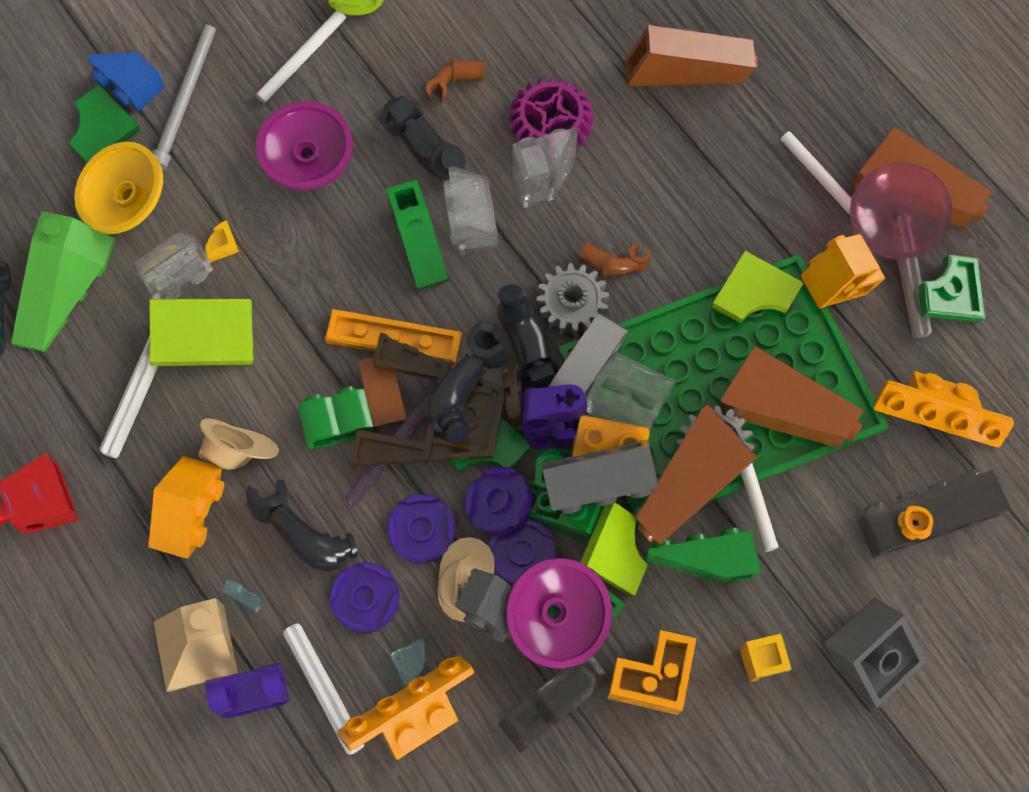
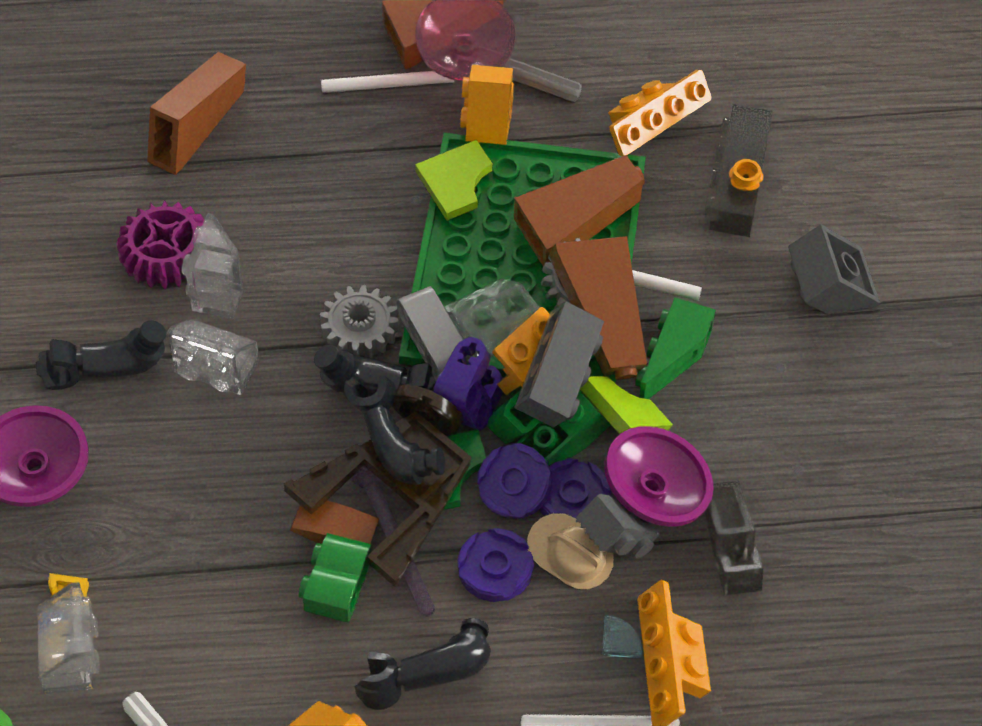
camera: 60 degrees left, 15 degrees down
(200, 332) = (156, 654): lime tile -> none
(233, 446) = (302, 683): tan piece -> none
(363, 332) = (270, 503): light orange tile -> none
(364, 597) = (532, 648): dark purple tile -> none
(416, 234) = (197, 410): green slope -> none
(455, 70) = (50, 298): dark orange piece -> none
(611, 264) = (346, 275): dark orange piece -> none
(657, 685) = (764, 438): light orange brick -> none
(764, 657) = (791, 353): yellow panel -> none
(955, 292) = (556, 50): tile -> none

